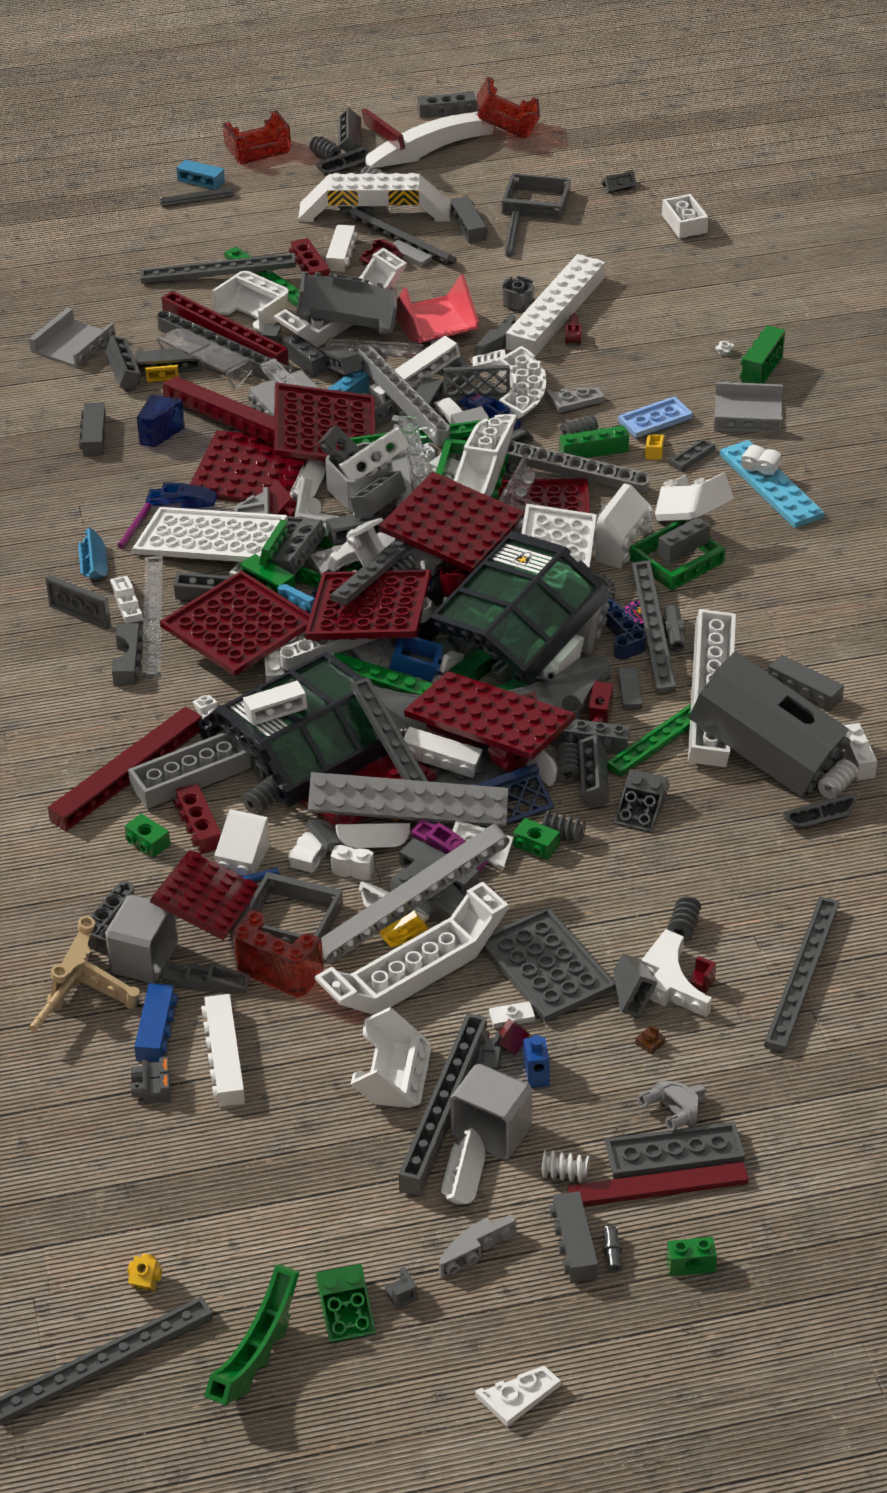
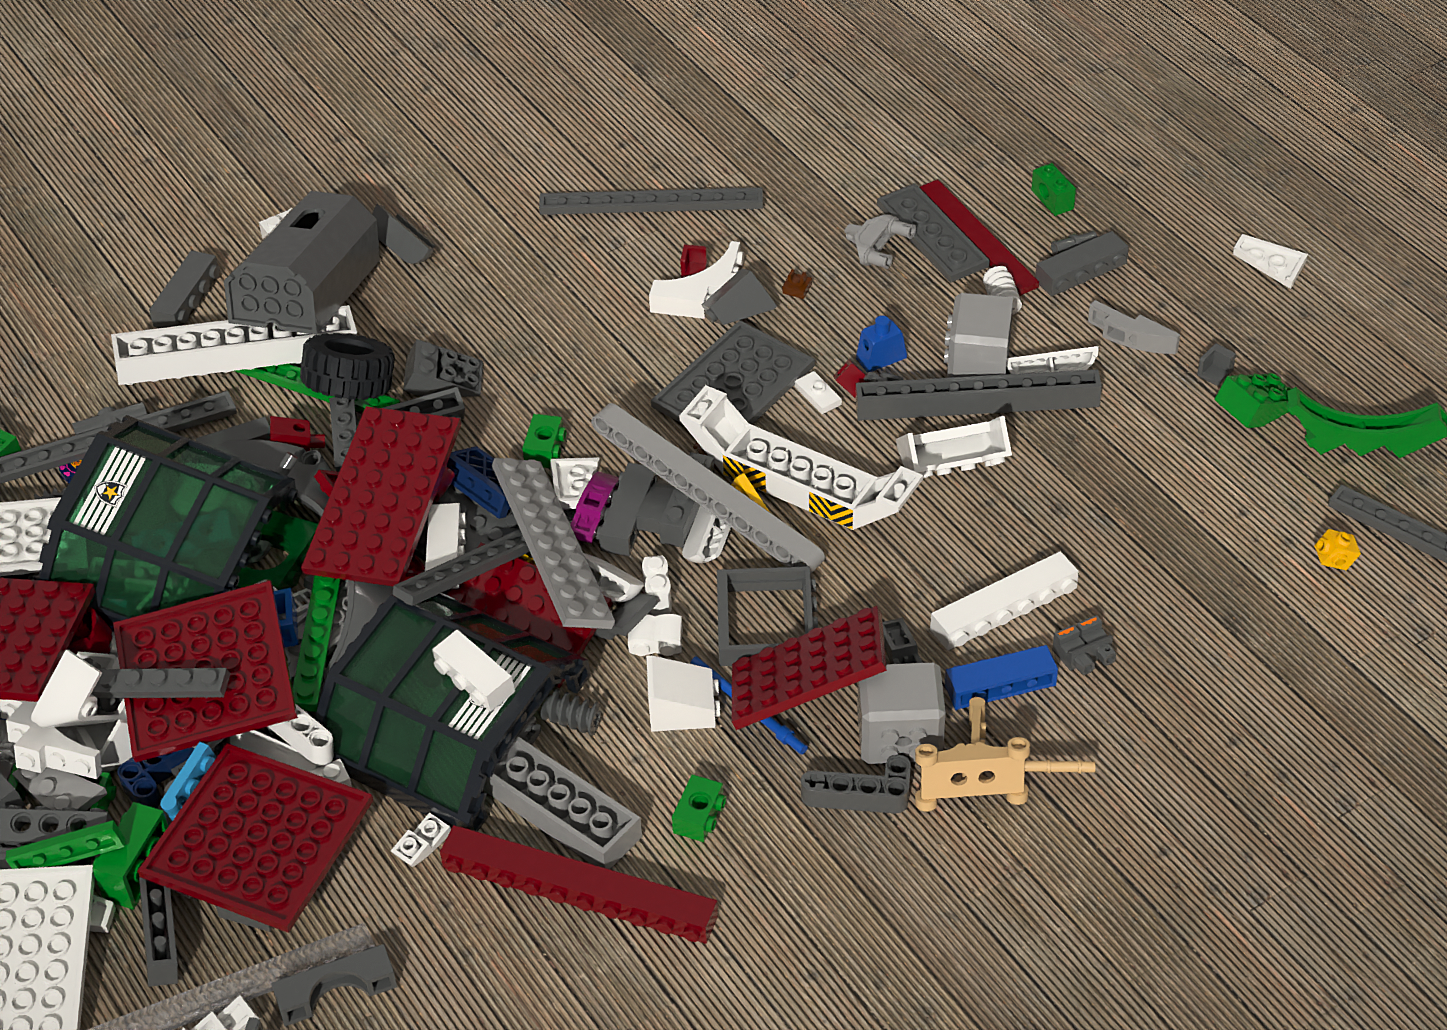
camera: 110 degrees left, 5 degrees up
(198, 818) = (645, 763): dark red brick -> none
(275, 961) = (860, 566): clear red windscreen -> none
(567, 828) = (514, 422): dark grey piece -> none
(666, 720) = (347, 366): none -> black tyre
(685, 917) = (619, 294): dark grey piece -> none

